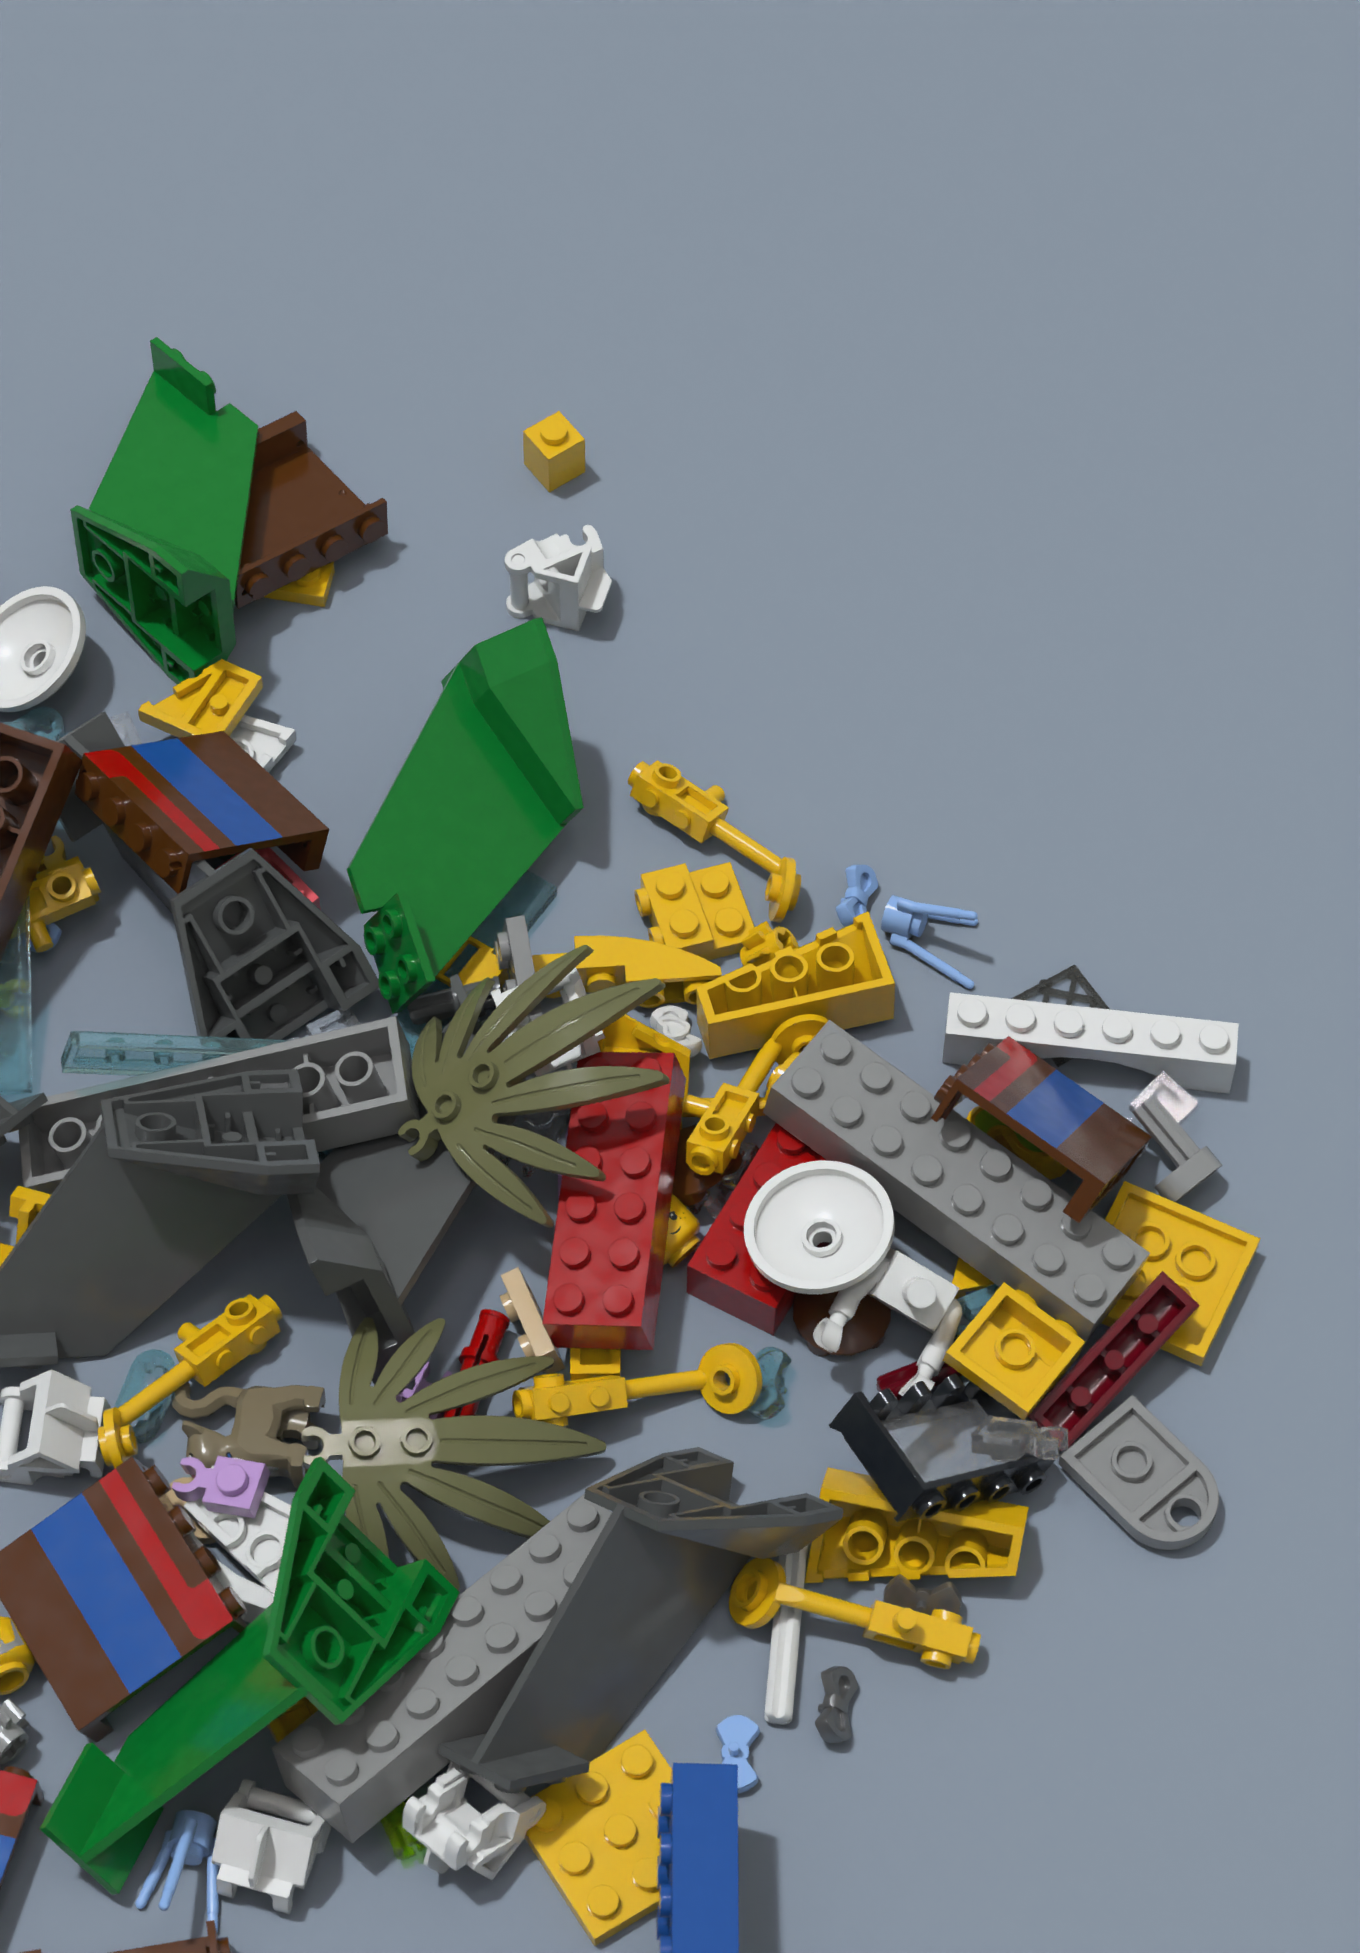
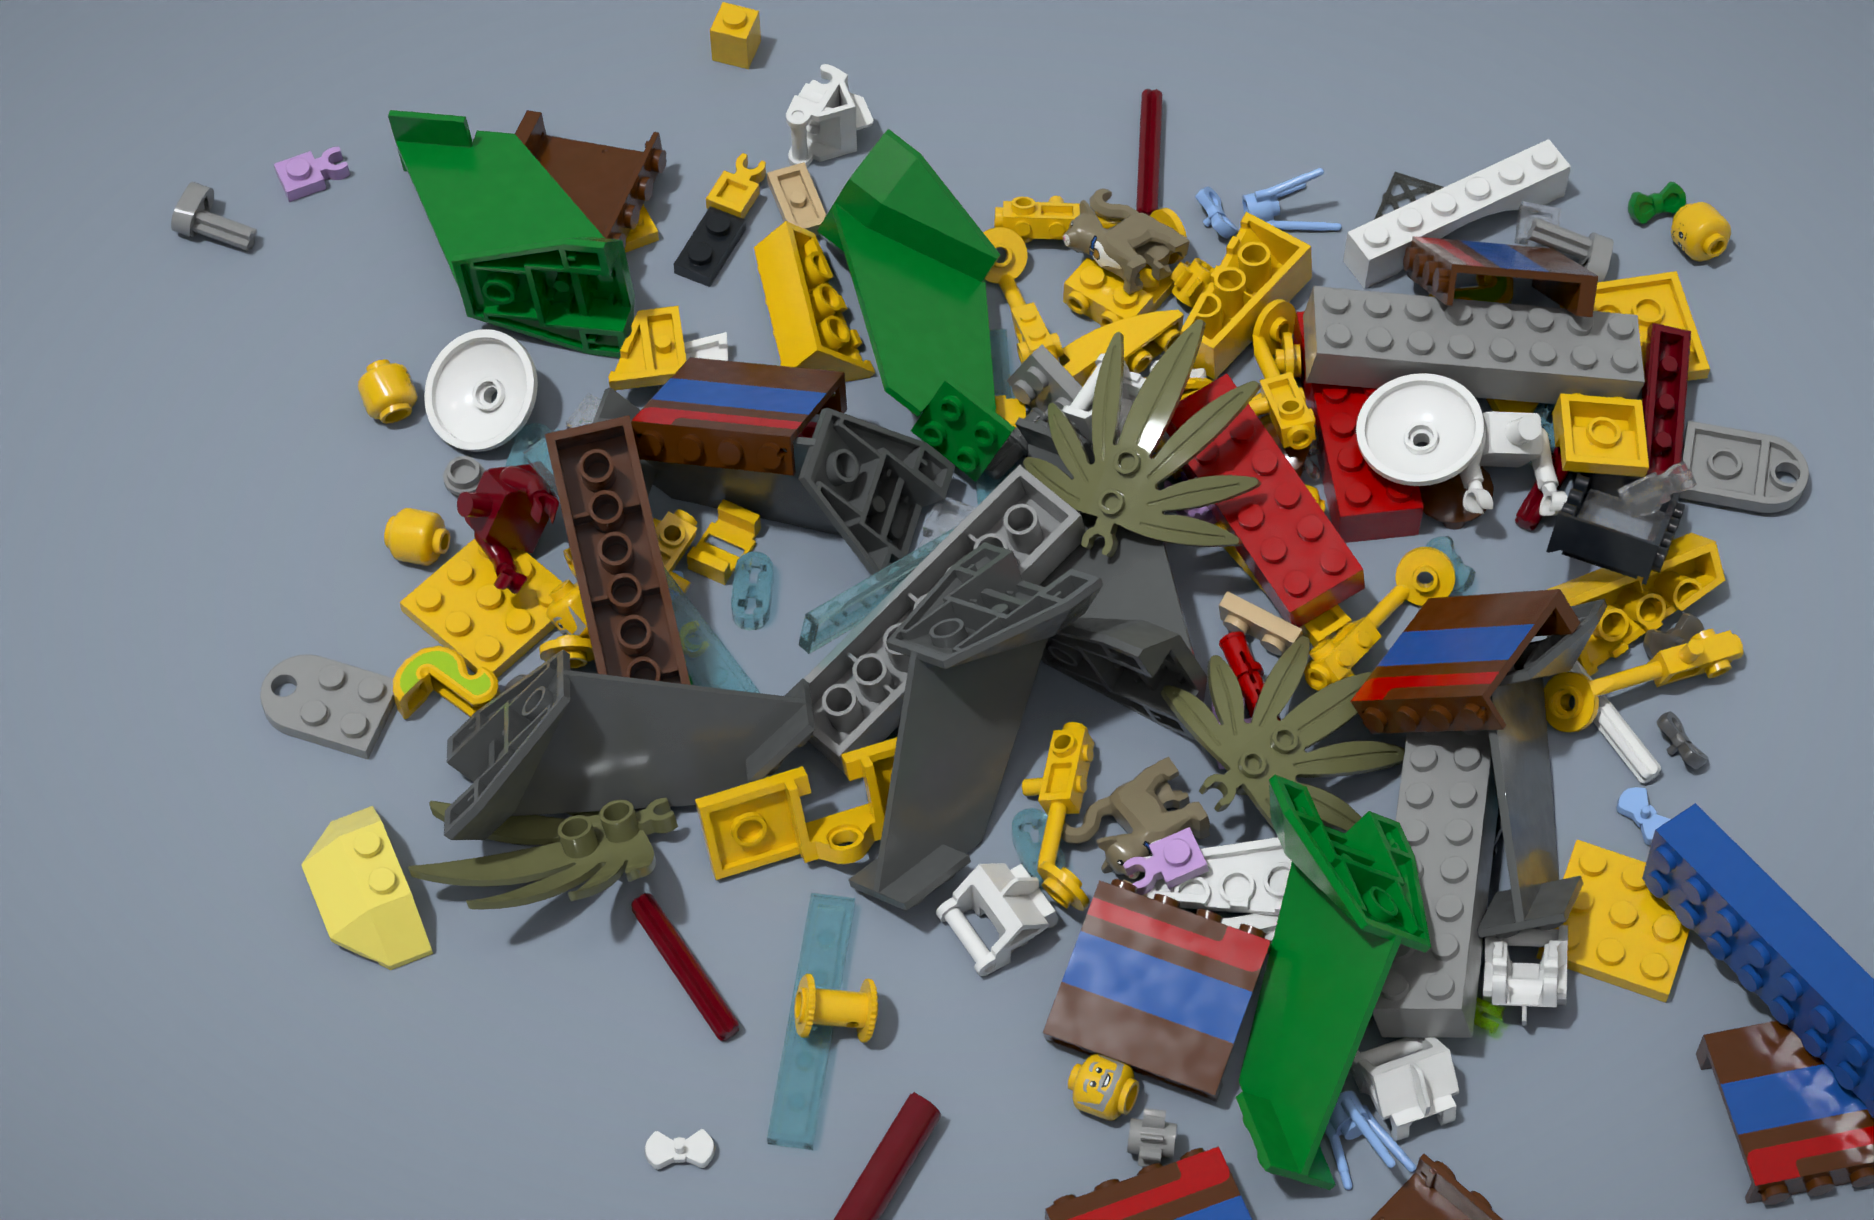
camera: 35 degrees left, 0 degrees up
(69, 355) = (306, 175): none -> lavender plate
(113, 991) = (744, 590): none -> clear light blue beam
(147, 920) = (733, 526): none -> yellow piece
(360, 640) = (709, 246): none -> black plate
(377, 746) = (804, 305): none -> yellow wedge
(427, 603) = (737, 191): none -> yellow plate
(474, 625) = (797, 197): none -> tan plate
(556, 914) = (1026, 319): none -> yellow piece
(639, 1465) = (1455, 659): none -> reddish brown panel
(726, 872) = (1128, 244): none -> dark tan animal
(847, 800) = (1149, 151): none -> dark red axle
(1324, 1214) = (1700, 231): none -> yellow head
(1325, 1163) = (1644, 207): none -> green piece

